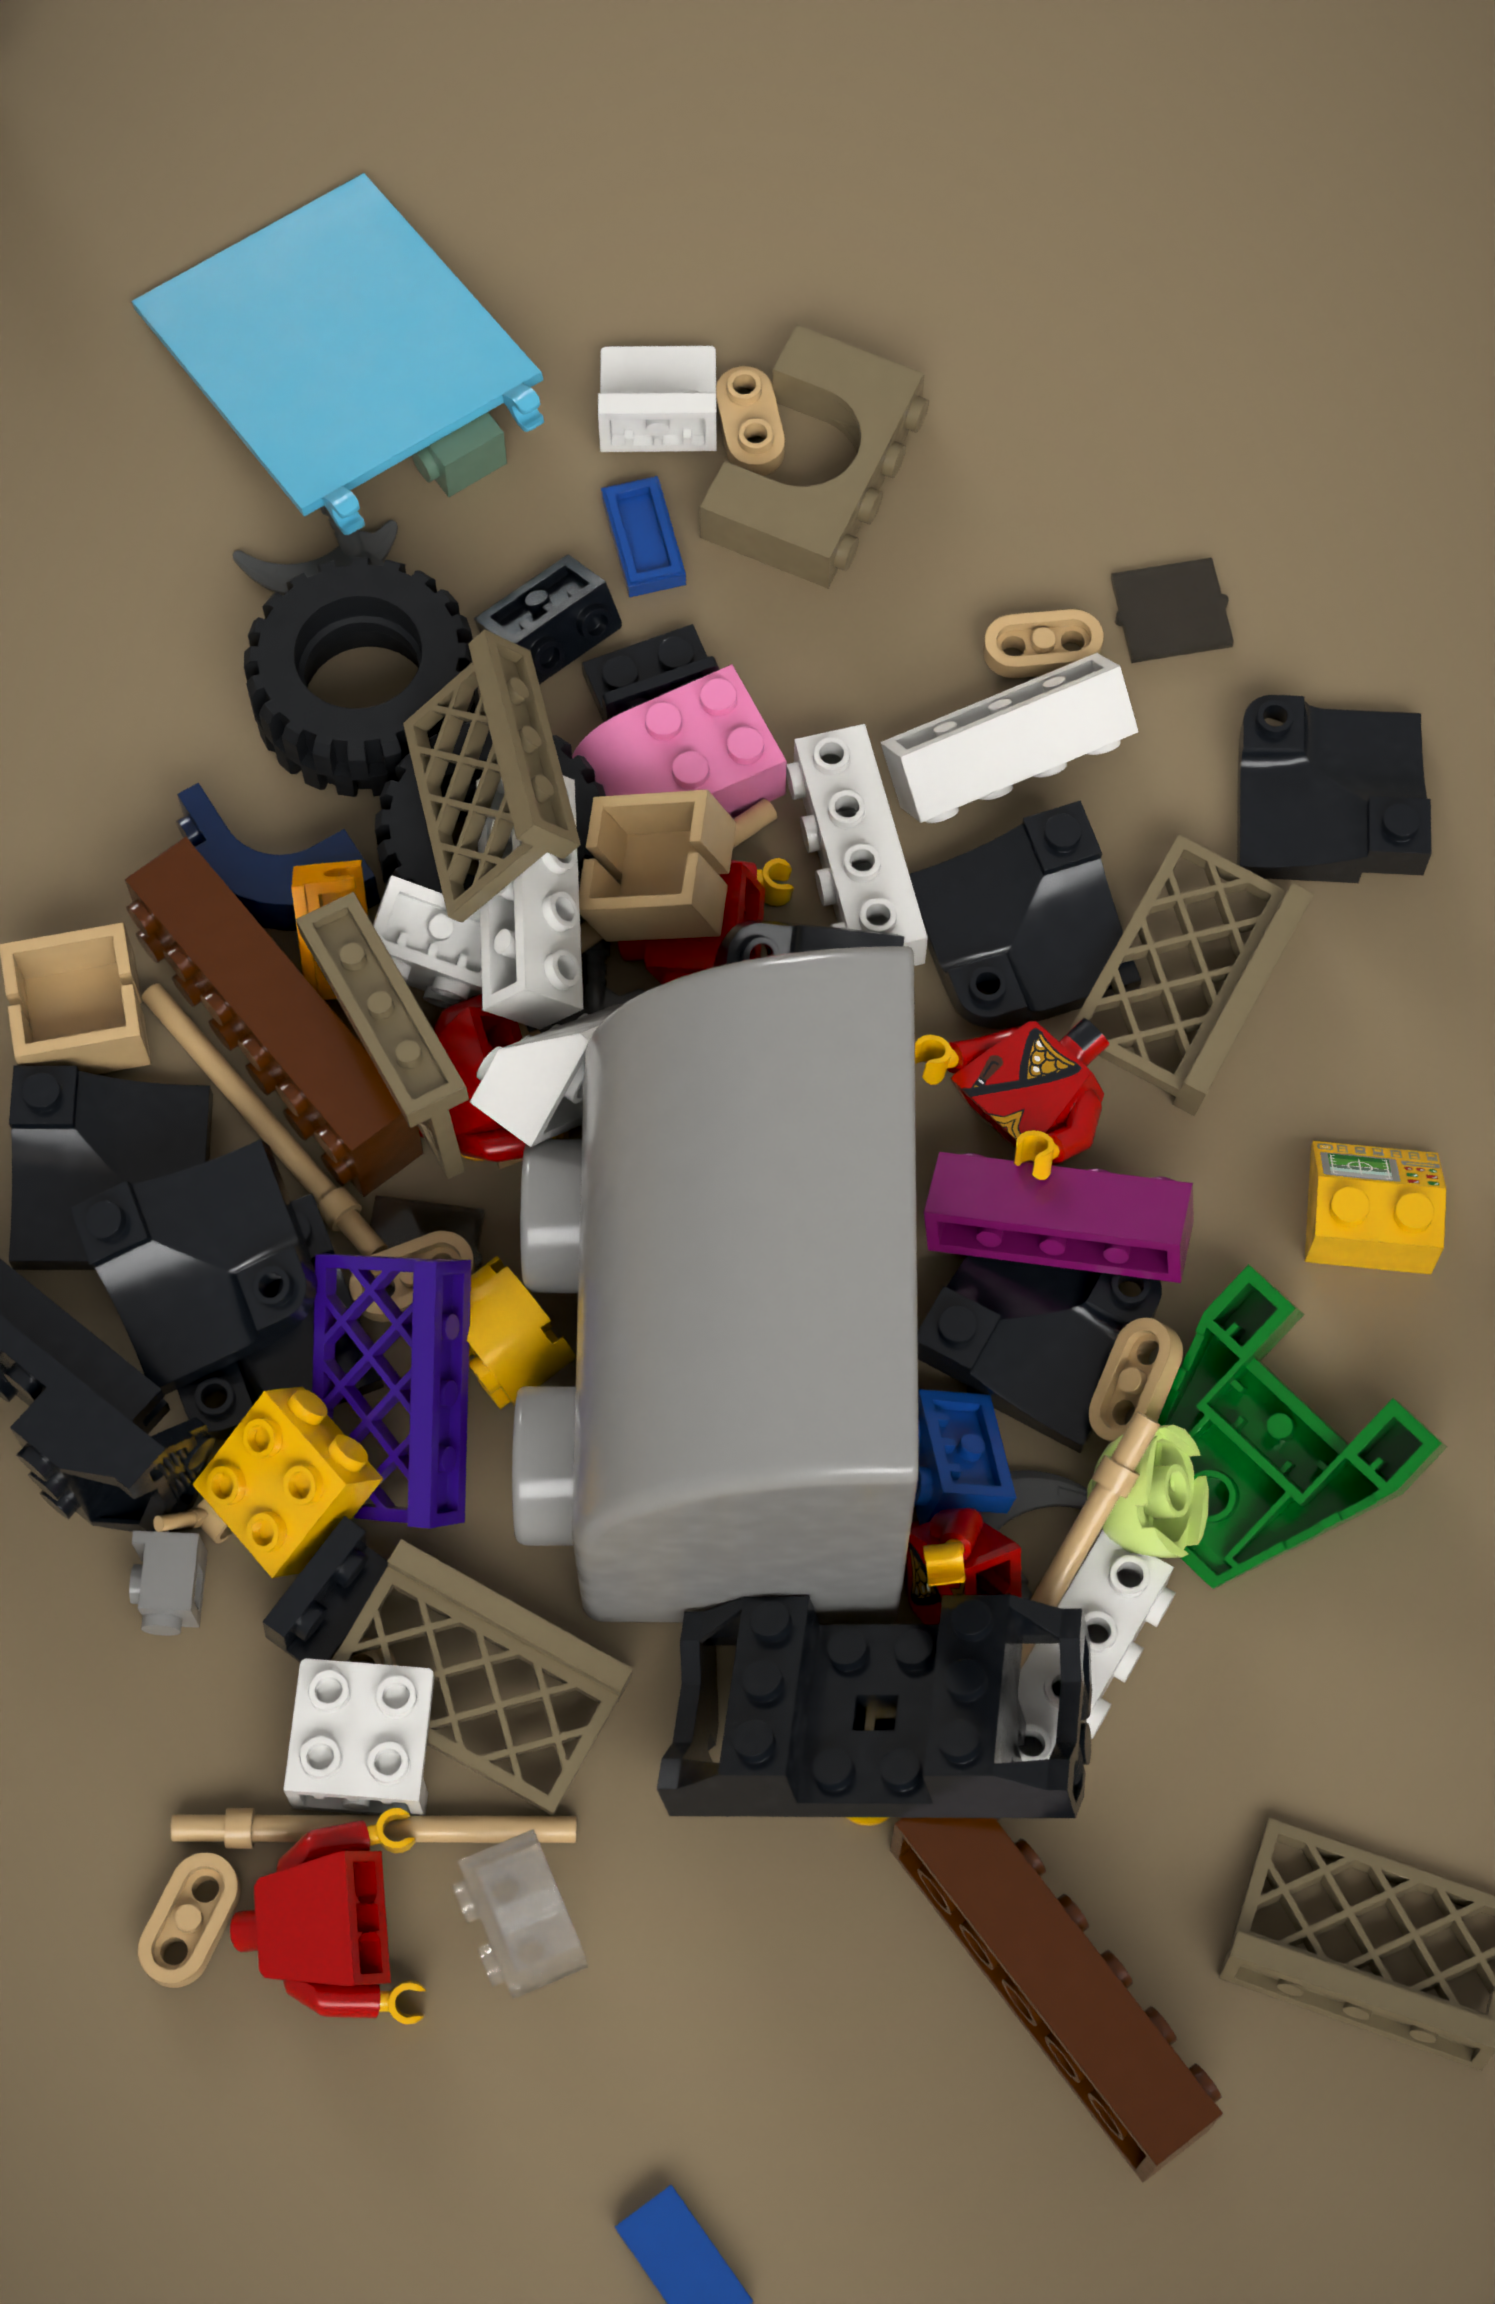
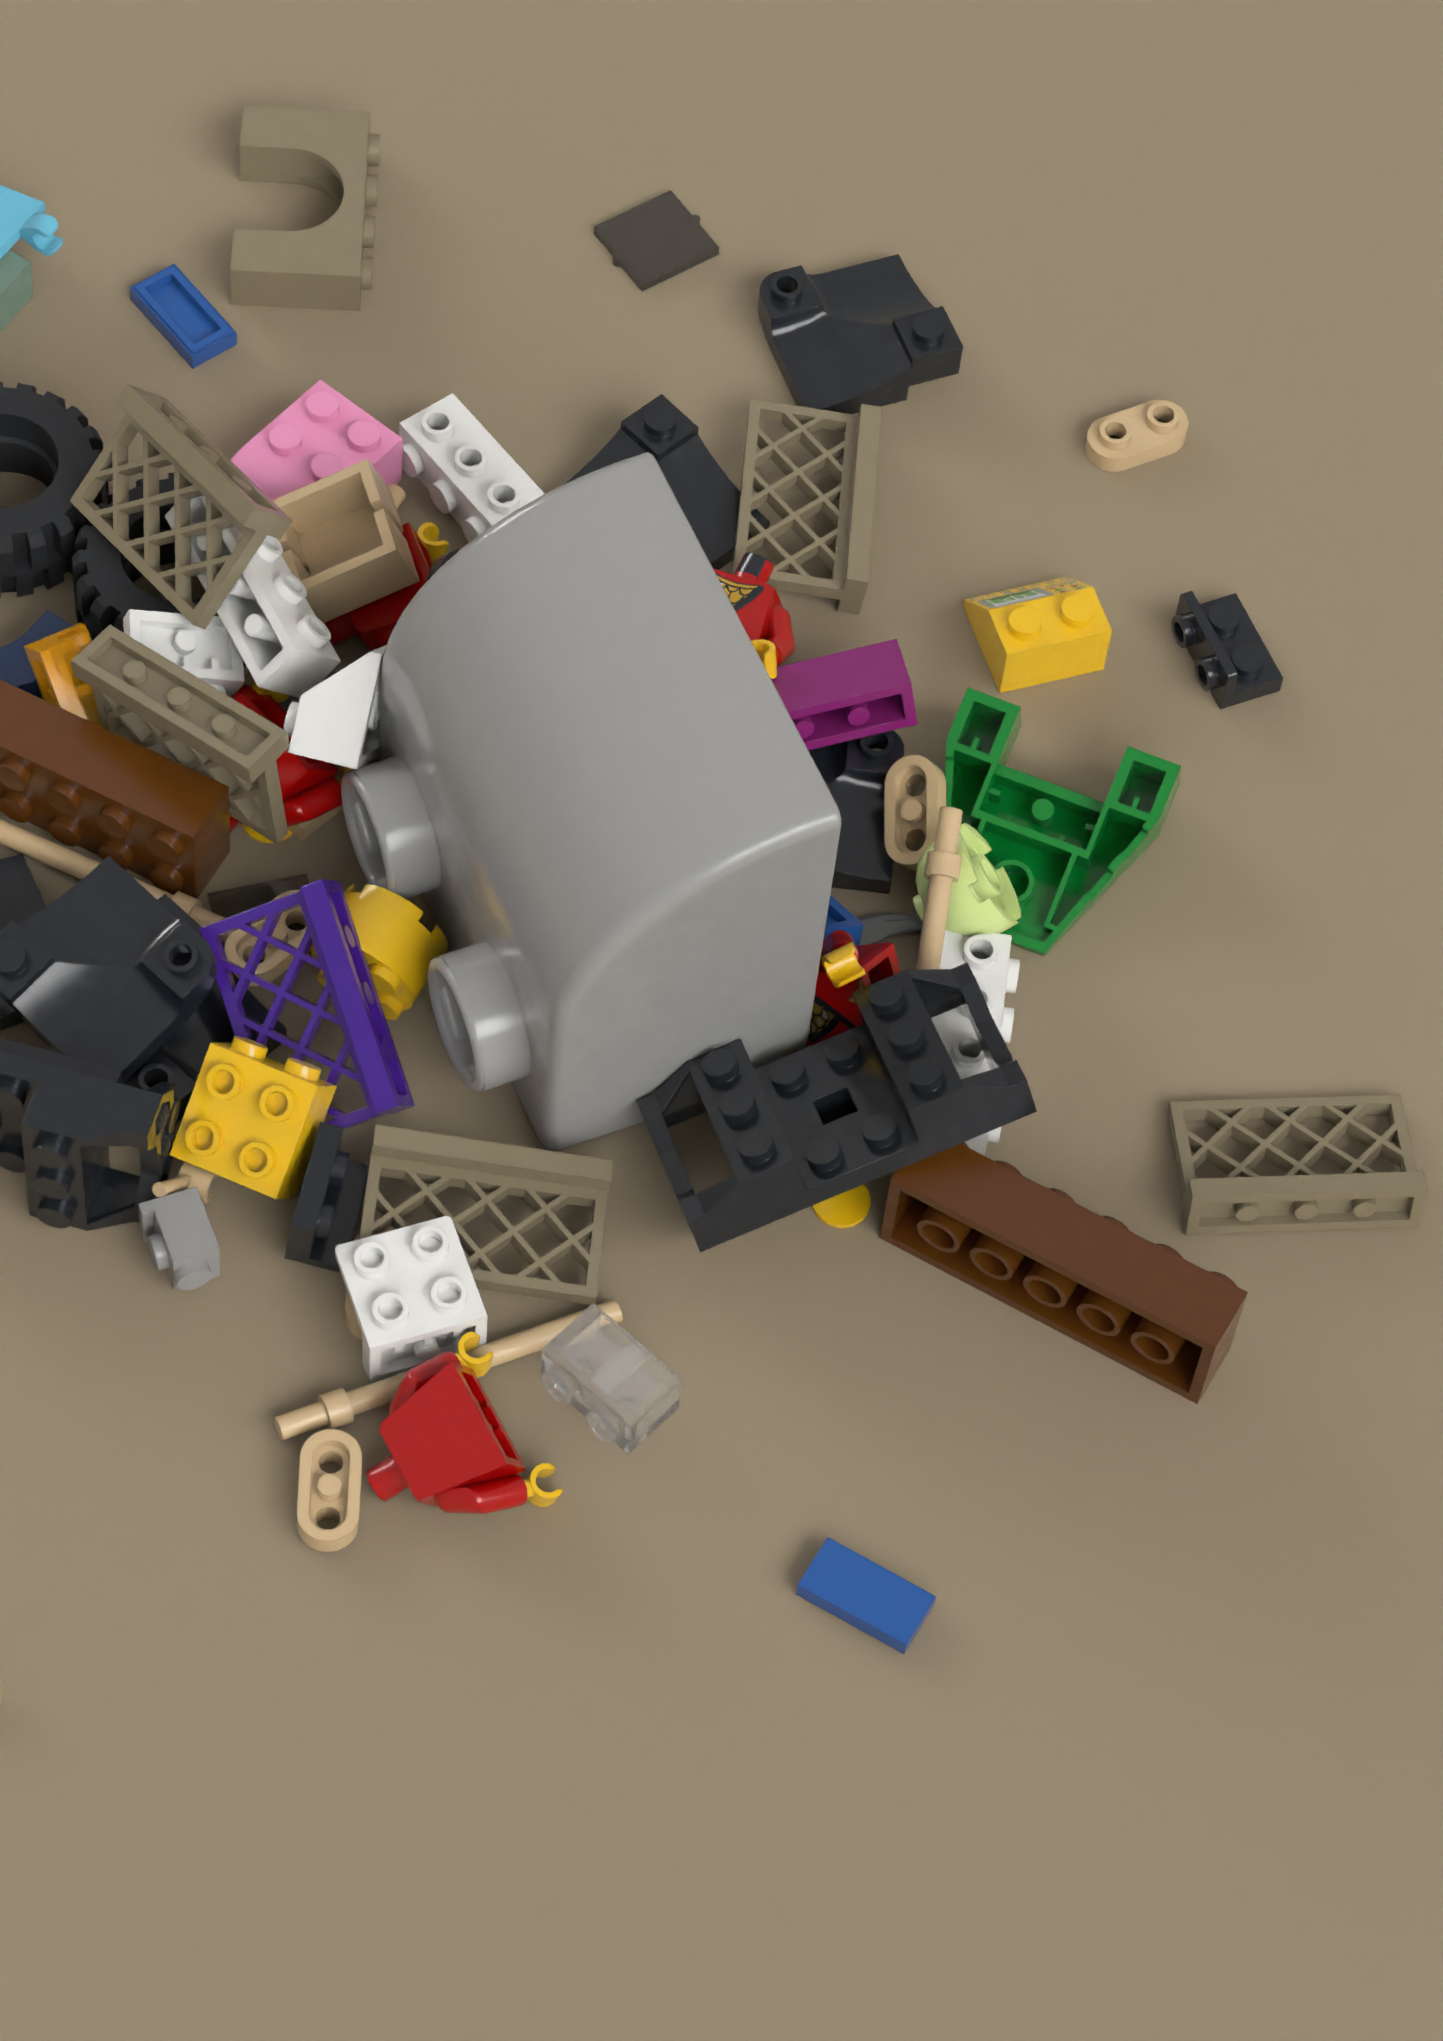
camera: 30 degrees left, 10 degrees down
(555, 615) = (145, 368): black bracket -> none
(646, 670) = (245, 411): black bracket -> none
(657, 399) = (146, 203): white bracket -> none
(750, 416) = (223, 191): tan plate -> none
(1010, 738) = (576, 370): white brick -> none
(1041, 641) = (562, 294): tan plate -> none

